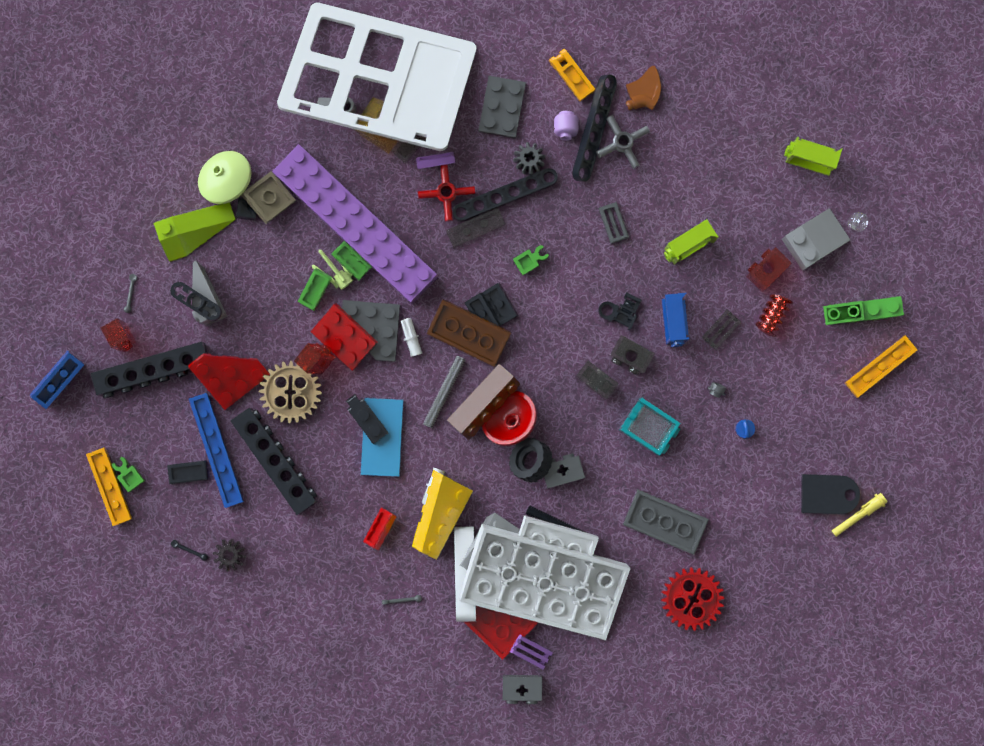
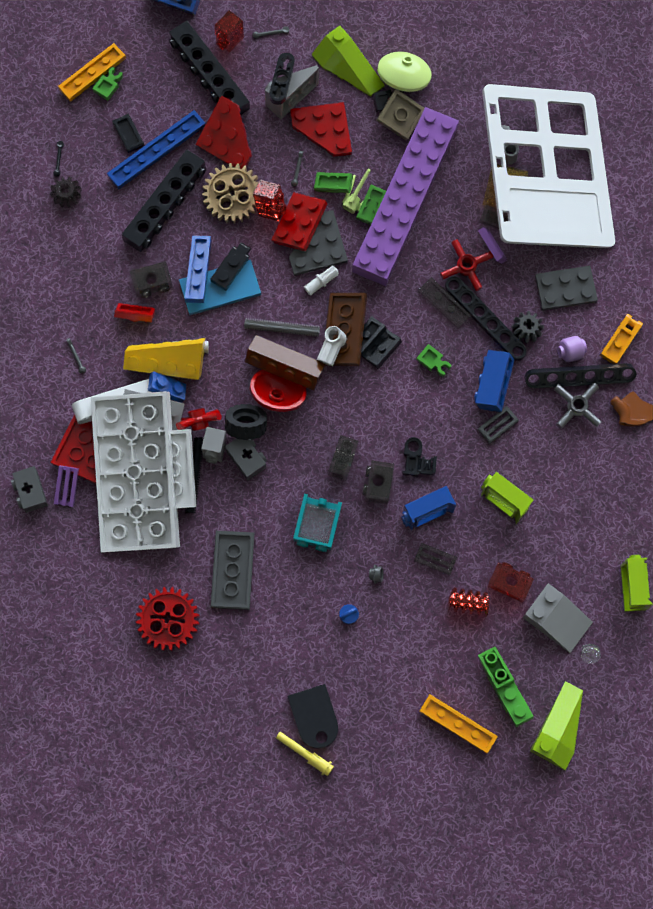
camera: 65 degrees right, 10 degrees down
(251, 276) = (324, 126): none -> red plate
(299, 327) = (294, 182): none -> dark grey hinge
(347, 490) = (142, 275): none -> clear smoke brick
(359, 452) = (198, 269): none -> plate
(468, 523) = (162, 383): none -> blue plate
(487, 353) = (331, 347): none -> white piece
(513, 504) = (198, 419): none -> red bar
(543, 498) = (214, 445): none -> light grey brick
(571, 210) = (494, 380): none -> blue brick
(919, 279) = (559, 732): none -> lime wedge

